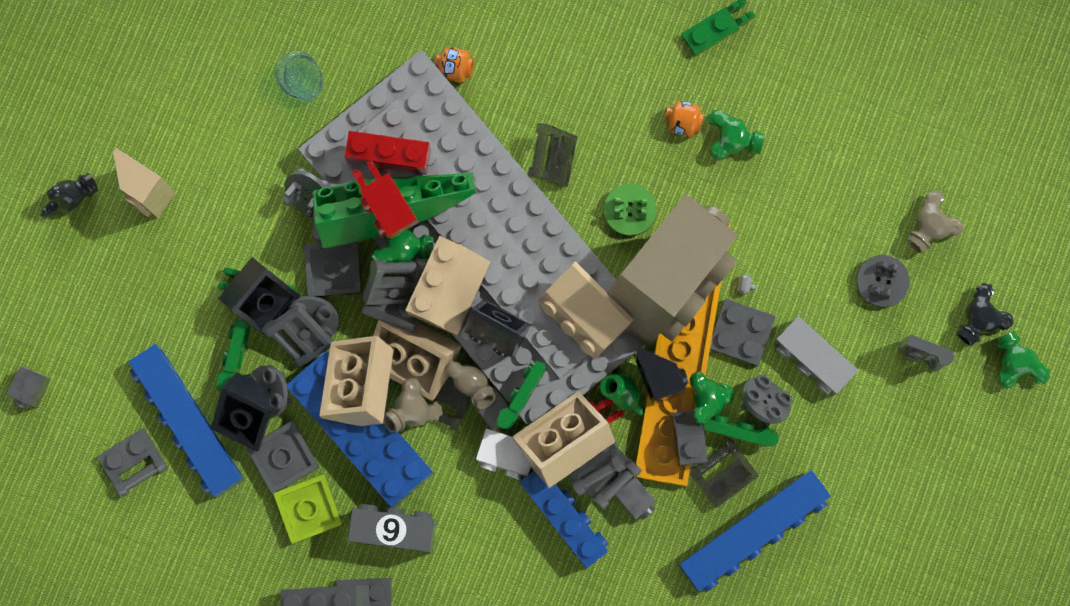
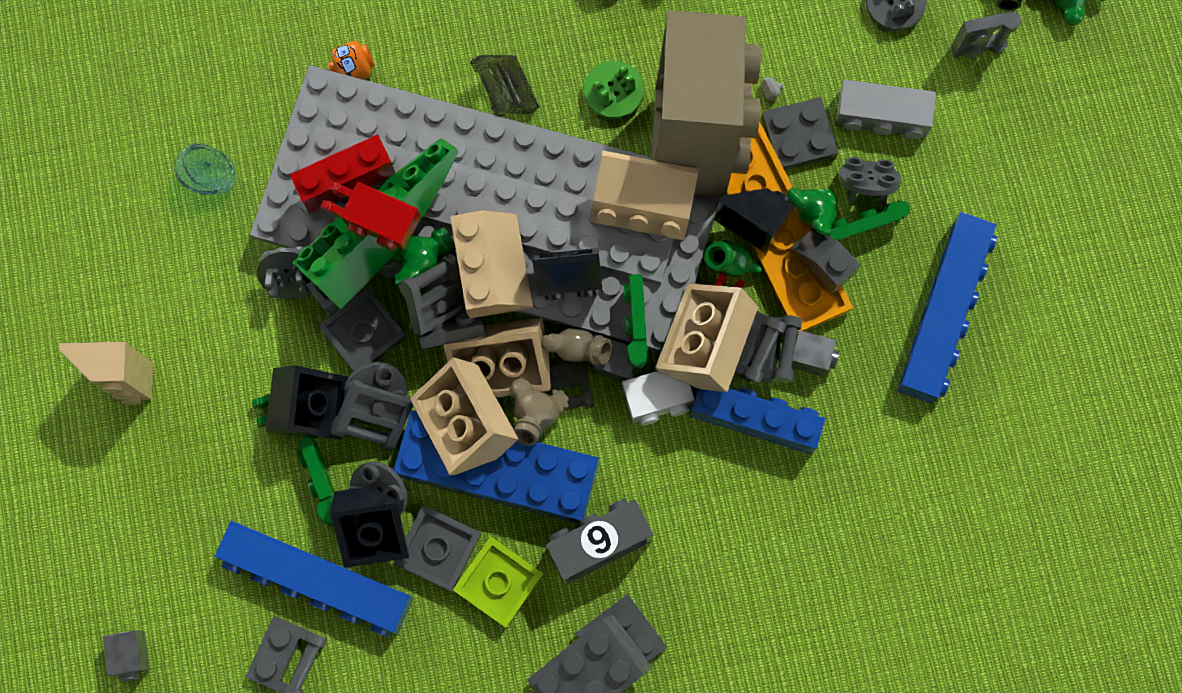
camera: 35 degrees left, 5 degrees down
(68, 195) = (42, 434): black animal -> none
(729, 480) = (887, 278): clear smoke plate -> none

